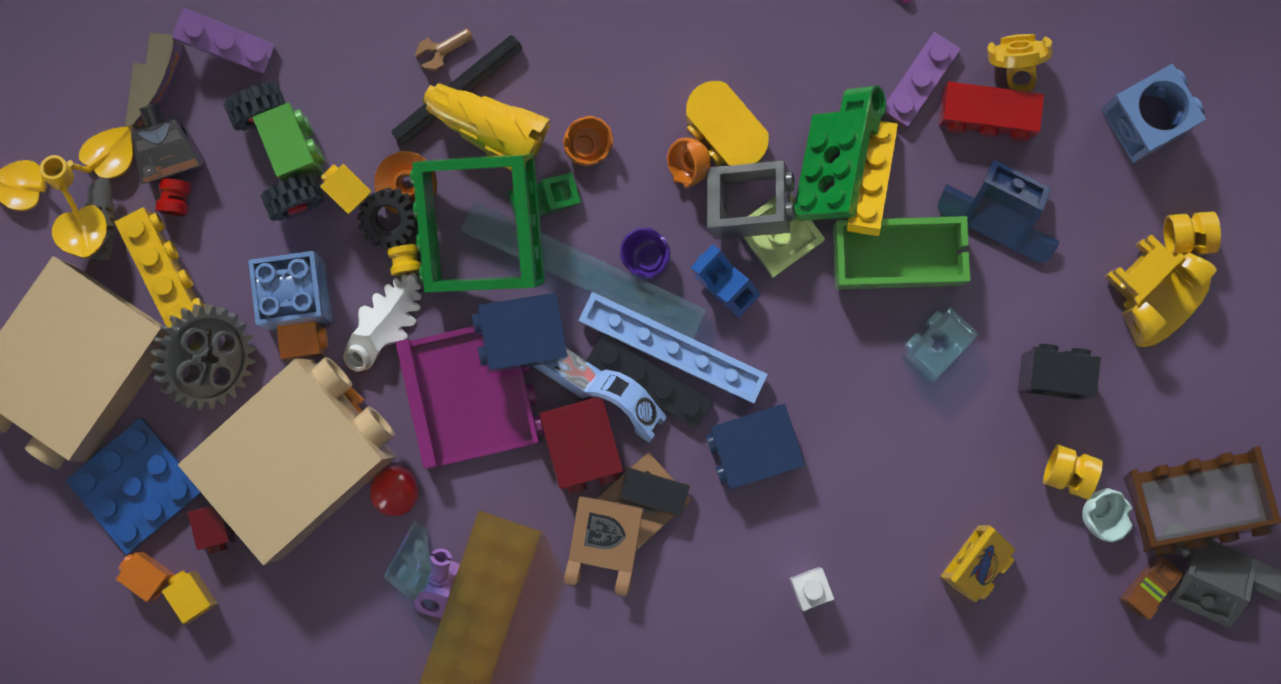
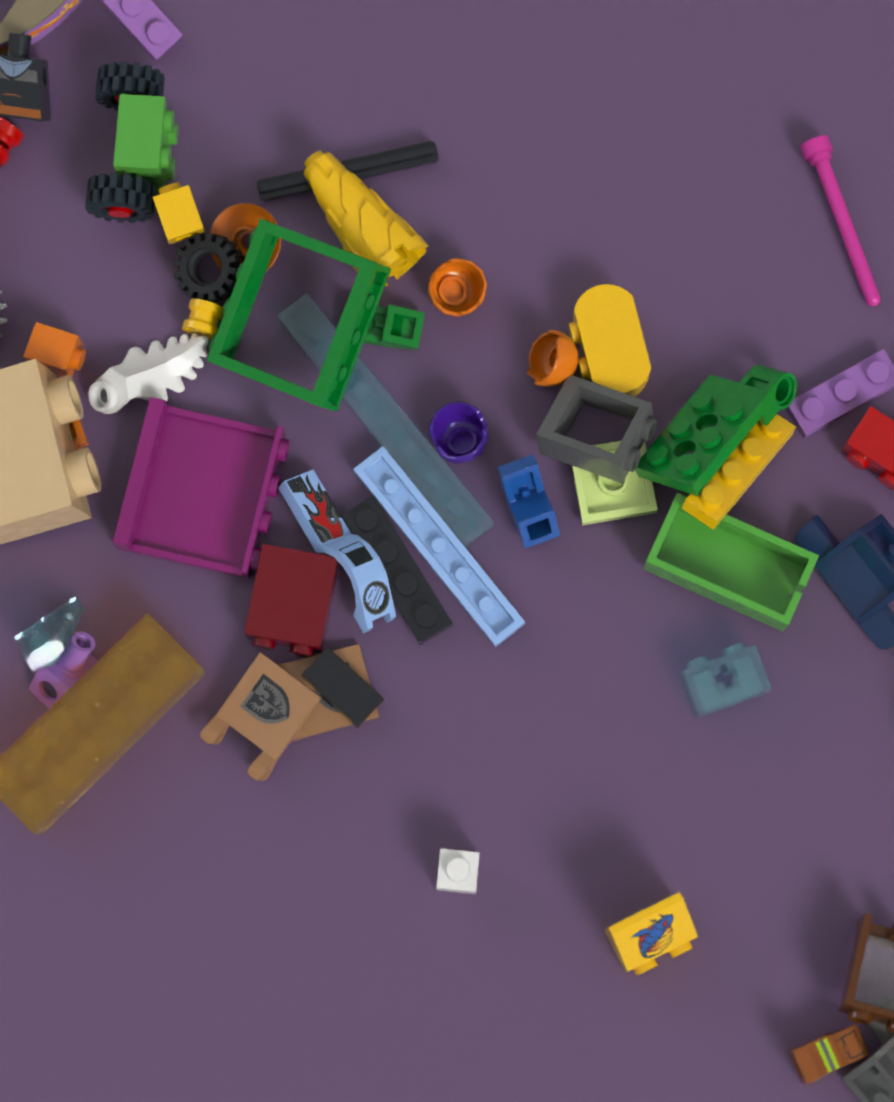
camera: 25 degrees right, 5 degrees down
(290, 290) = (69, 291): medium blue brick -> none
(394, 490) = (71, 553): red hair -> none
(441, 49) = (352, 122): medium nougat bar -> none
(519, 333) = (283, 449): dark blue brick -> none
(755, 447) = (473, 692): dark blue brick -> none
(1058, 373) = (838, 771): black brick -> none
(1070, 471) = (802, 885): yellow wheel -> none
(1107, 515) = (817, 950): light aqua hair -> none

